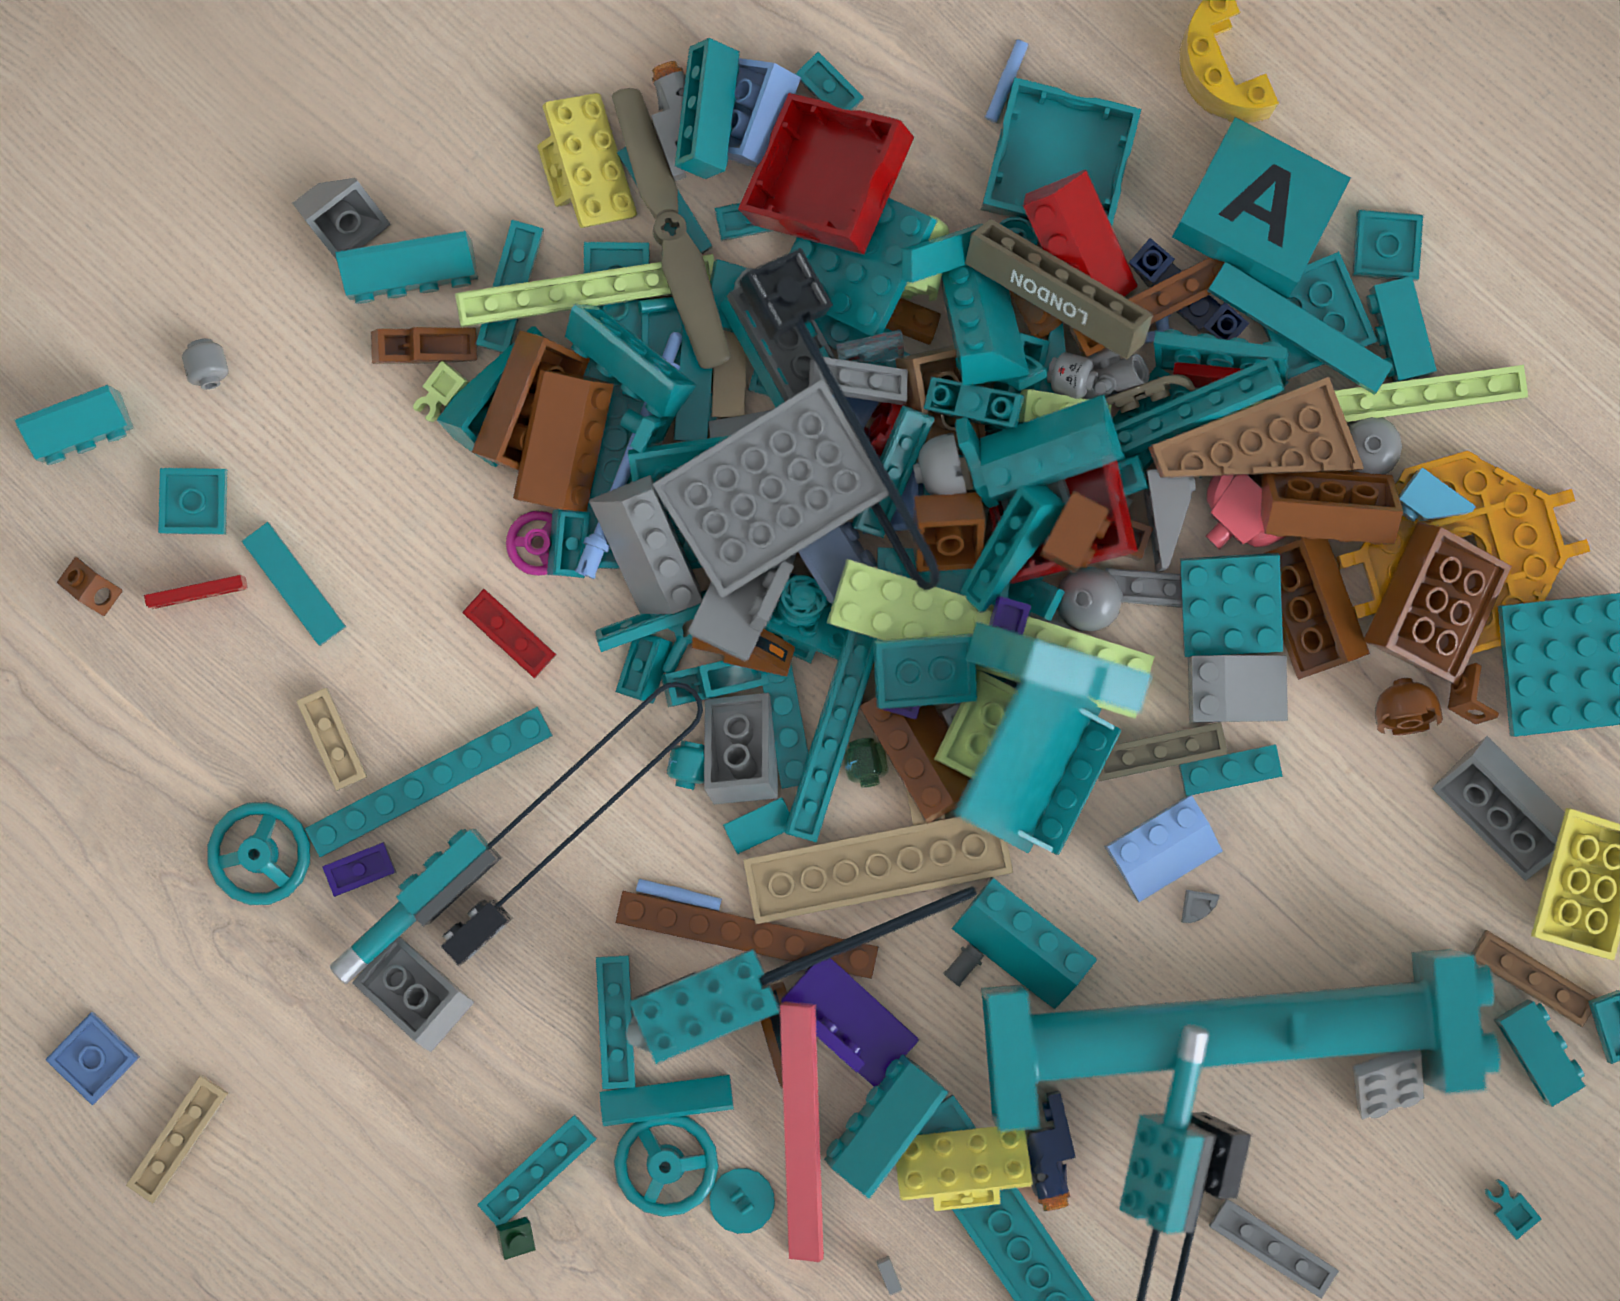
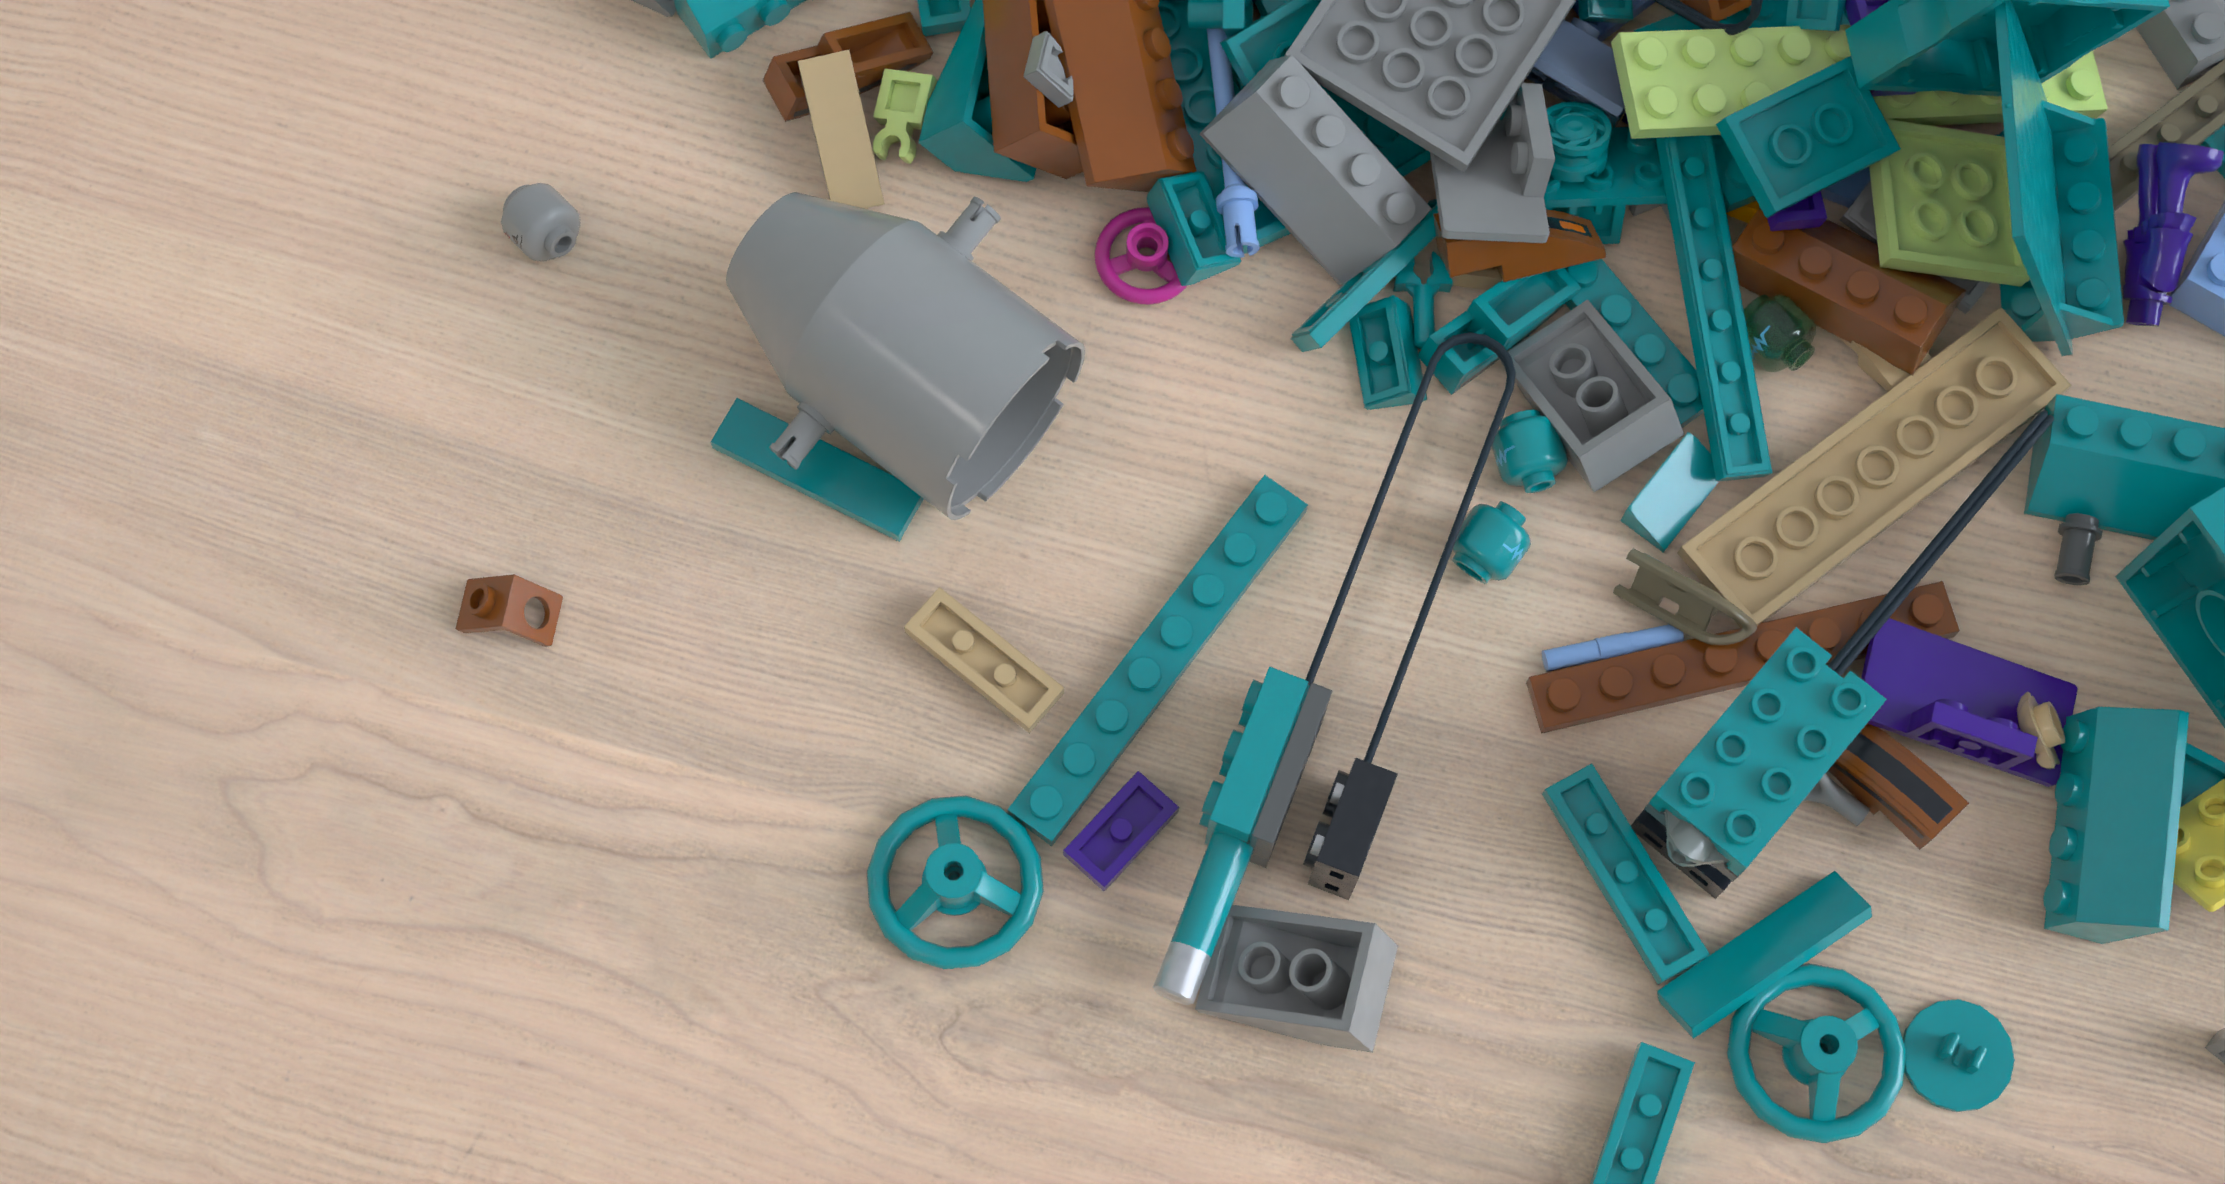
camera: 30 degrees left, 15 degrees down
(75, 424) = (382, 379): teal slope -> none
(192, 501) = (611, 419): teal plate -> none
(196, 592) = (676, 541): red tile -> none
(359, 547) = (901, 344): none -> light grey piece
(396, 391) = (841, 130): none -> tan tile
(509, 633) = (1169, 396): red tile -> none
(518, 425) = (1046, 71): none -> light grey tile
(640, 806) = (1491, 542): none -> teal head
(733, 896) = (1695, 601): none -> dark tan piece
(755, 1039) = (1834, 796): none -> light grey bar
(801, 1131) = (2003, 891): coral tile -> none
(877, 1057) = (2045, 724): none -> tan animal
(1108, 814) = (2162, 236): none -> dark purple piece

